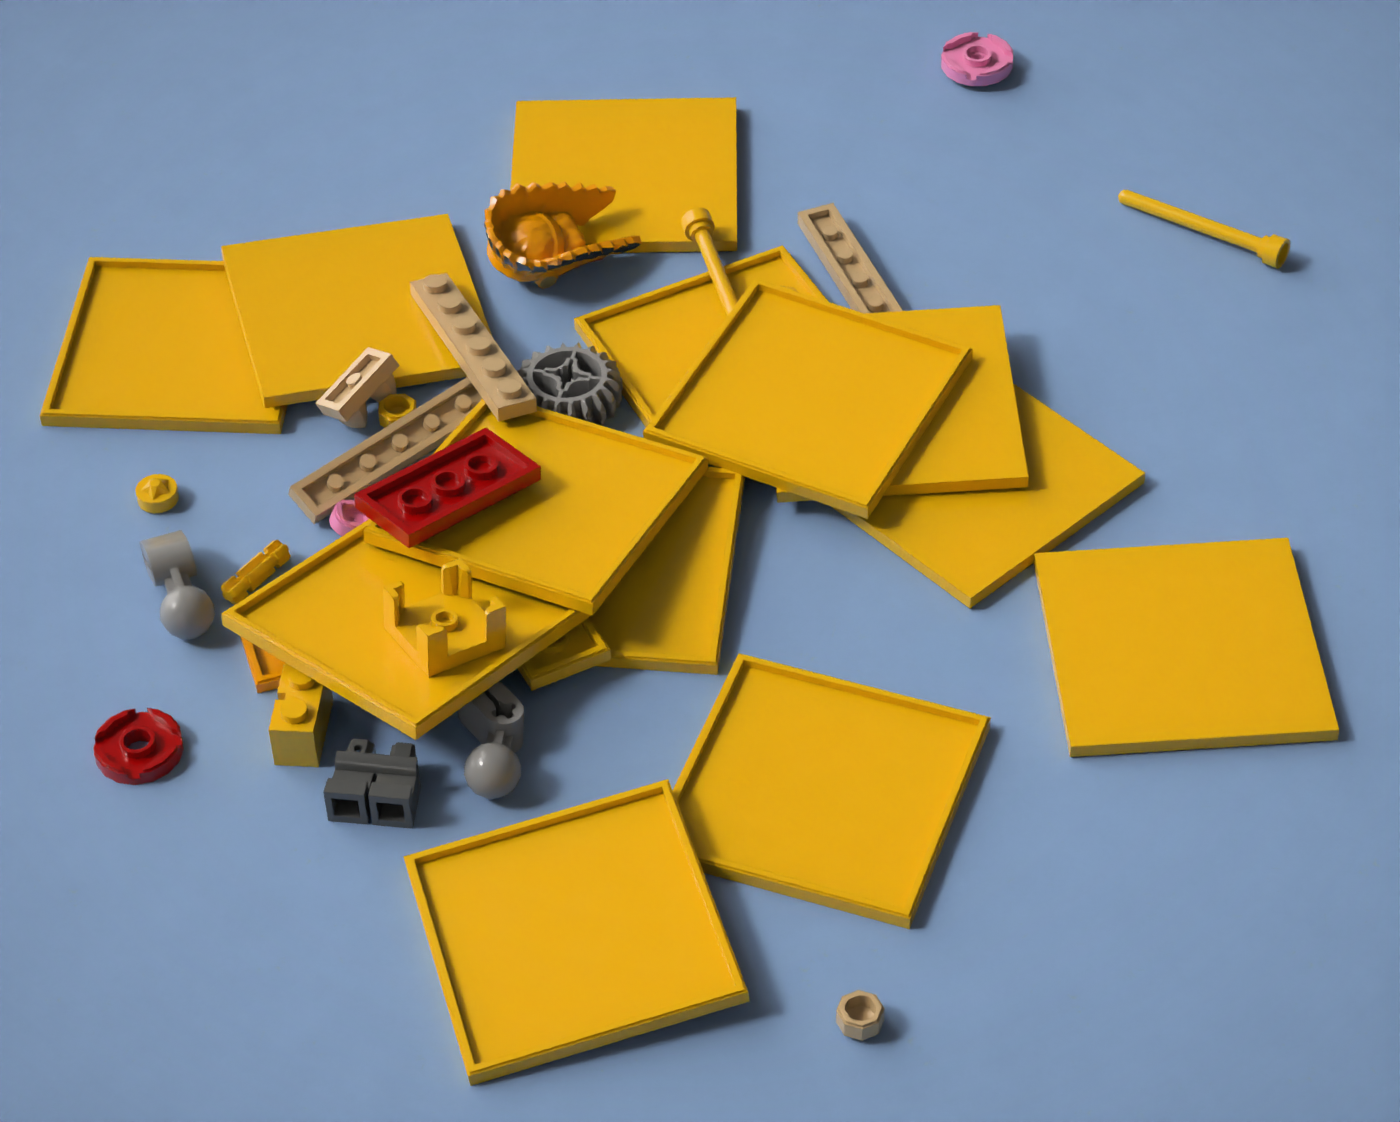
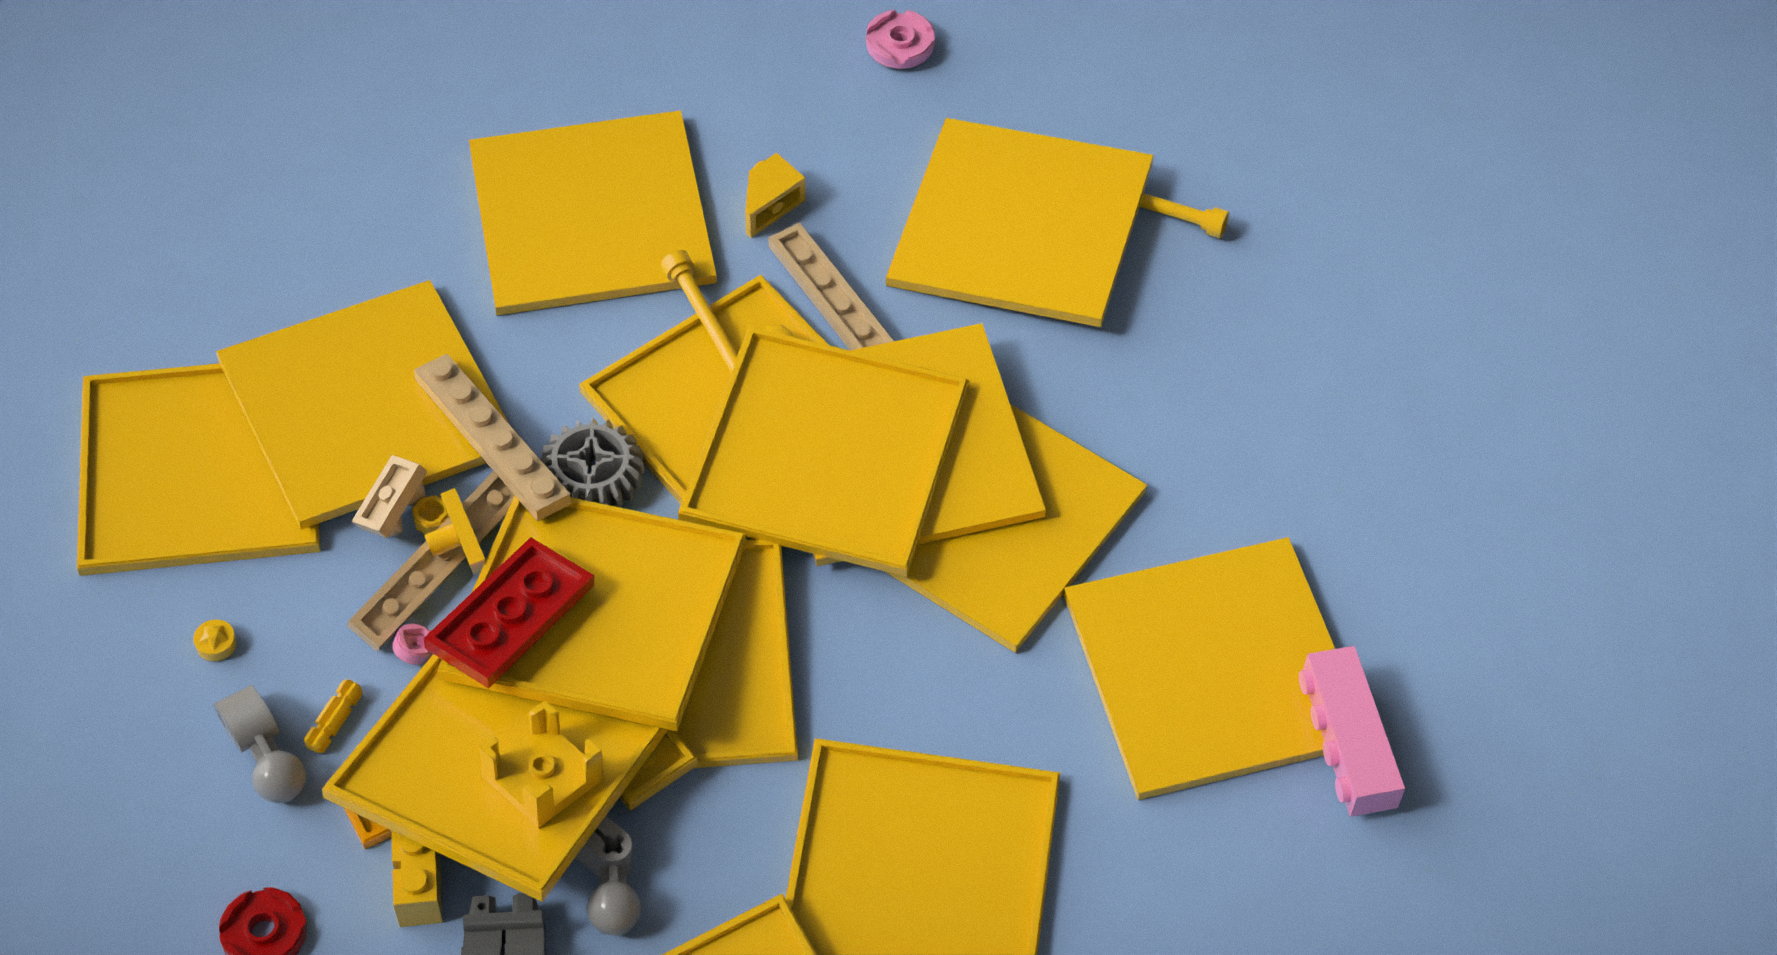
camera: 15 degrees left, 10 degrees up
(413, 423) = (456, 534): none -> yellow tile
(537, 233) = (527, 303): light orange piece -> none
(810, 176) = (772, 192): none -> yellow slope
(1066, 228) = (1021, 222): none -> yellow tile
(1314, 715) = (1351, 731): none -> bright pink brick

